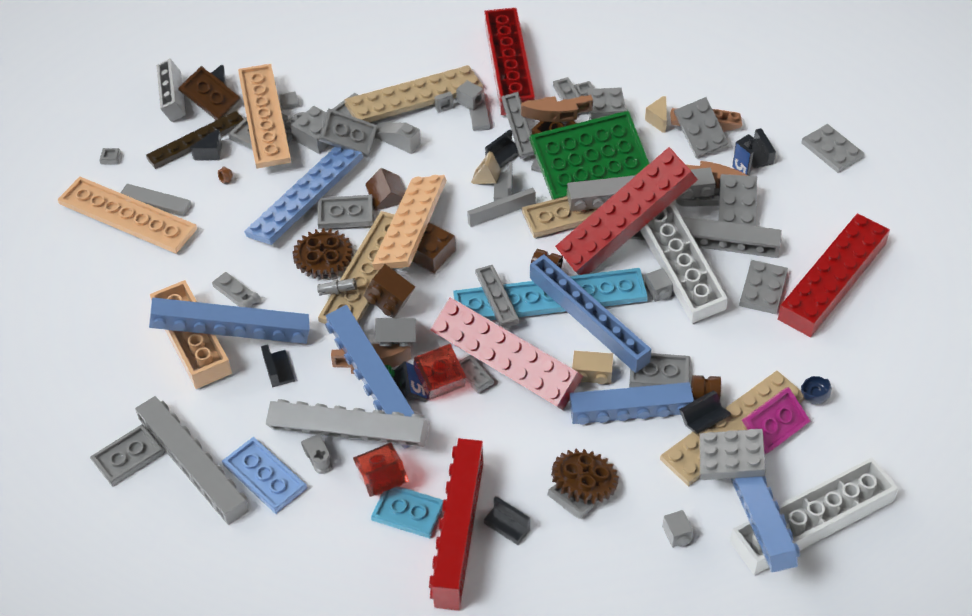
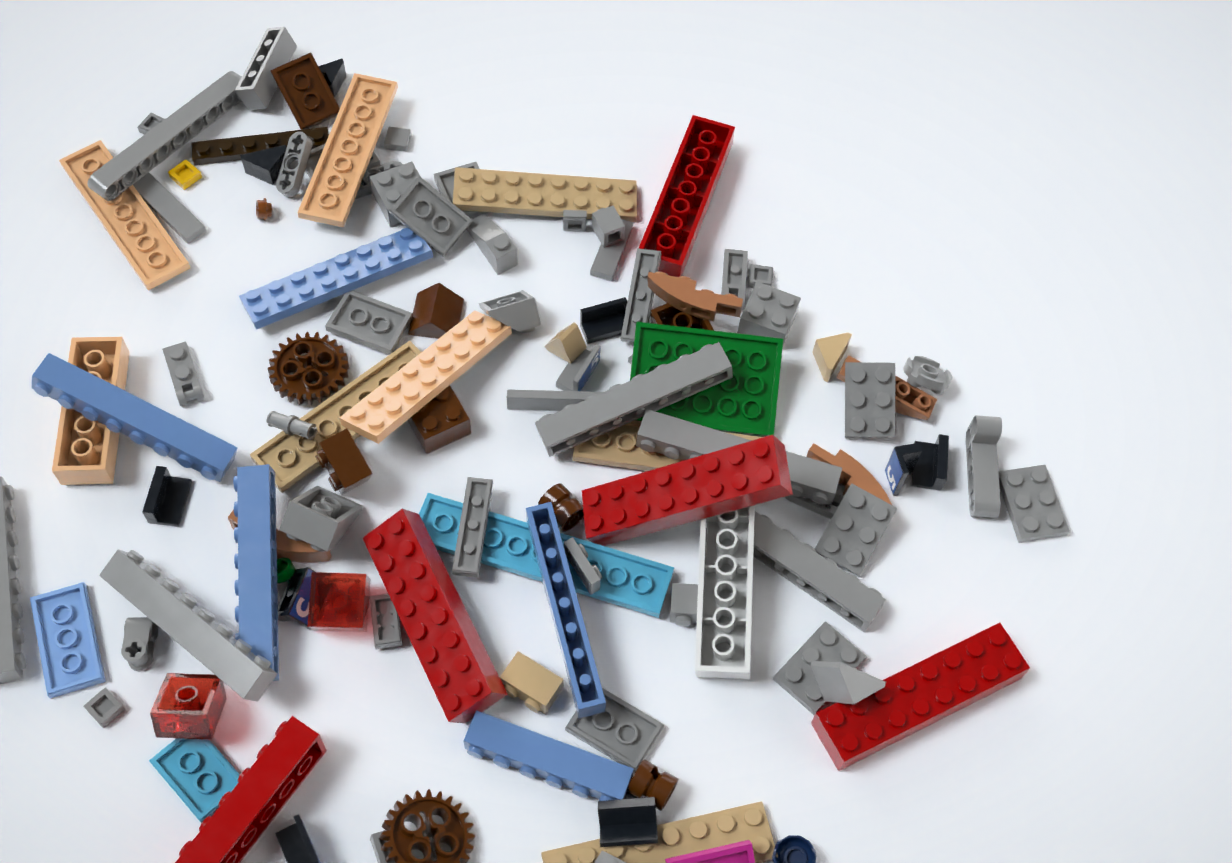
camera: 20 degrees right, 10 degrees up
(129, 155) = (166, 138): none -> light grey beam
(153, 176) = (185, 174): none -> yellow tile
(225, 133) = (291, 154): none -> light grey beam
(318, 501) = (104, 707): none -> light grey tile
(440, 165) = (514, 310): none -> light grey slope
(554, 182) = (630, 400): none -> light grey brick
(590, 287) = (578, 557): none -> light grey plate
(724, 100) = (926, 373): none -> light grey plate
(786, 278) = (844, 683): none -> light grey slope
(790, 137) = (983, 465): none -> light grey beam

